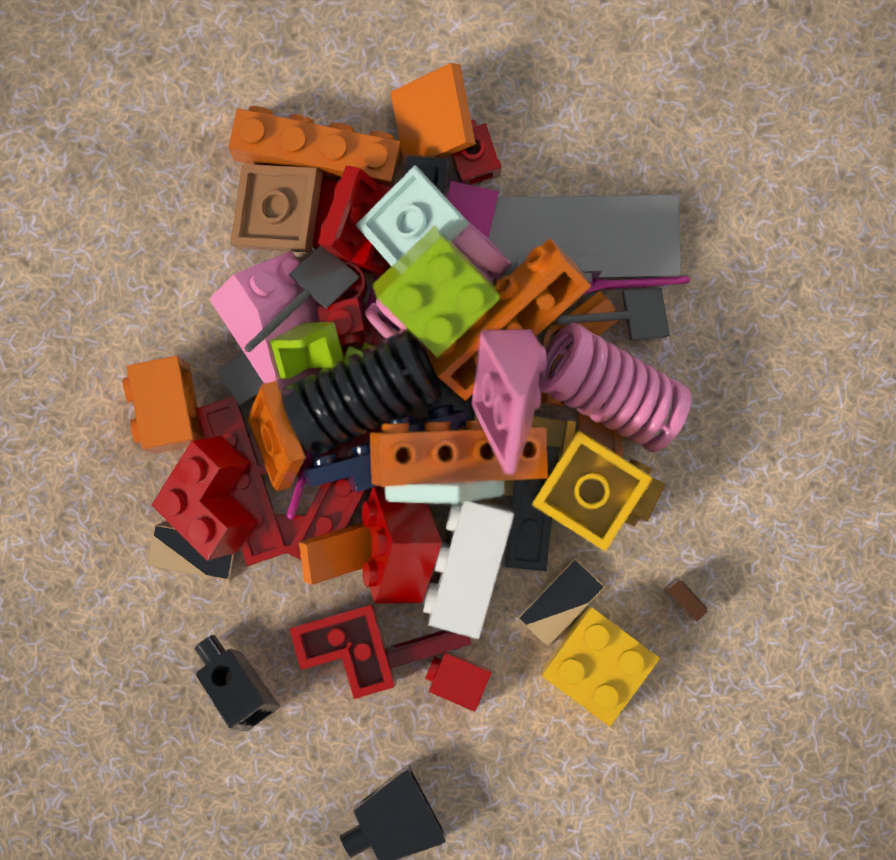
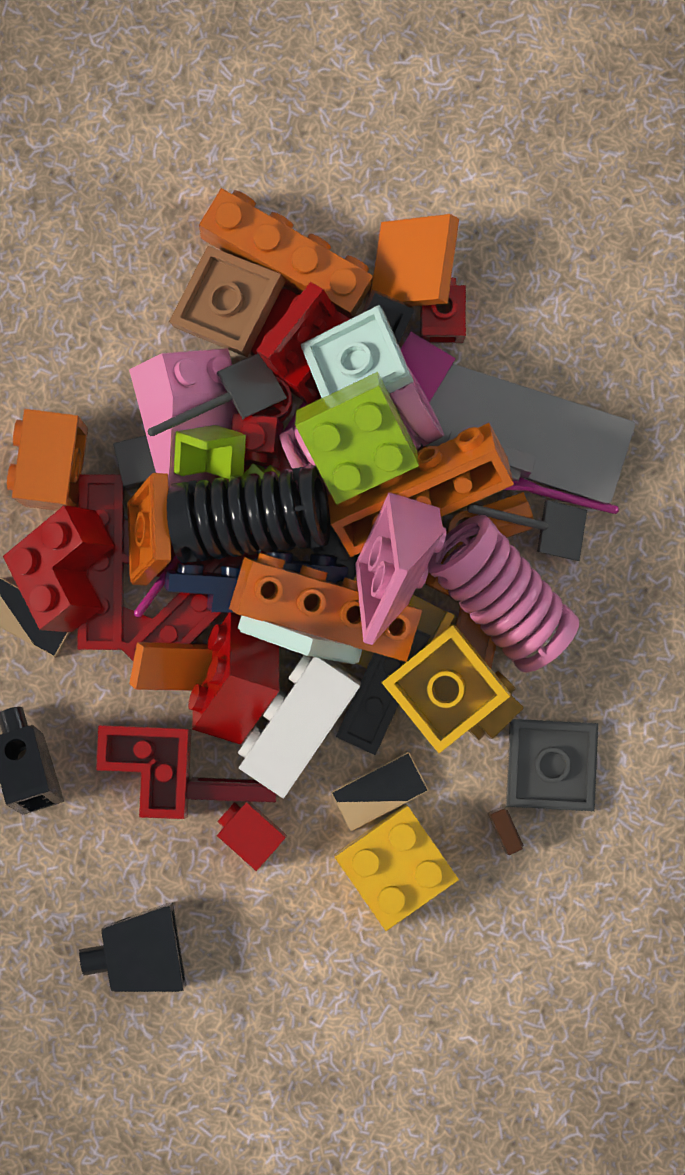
camera: 10 degrees right, 0 degrees up
(707, 526) = (552, 765): none -> dark grey tile

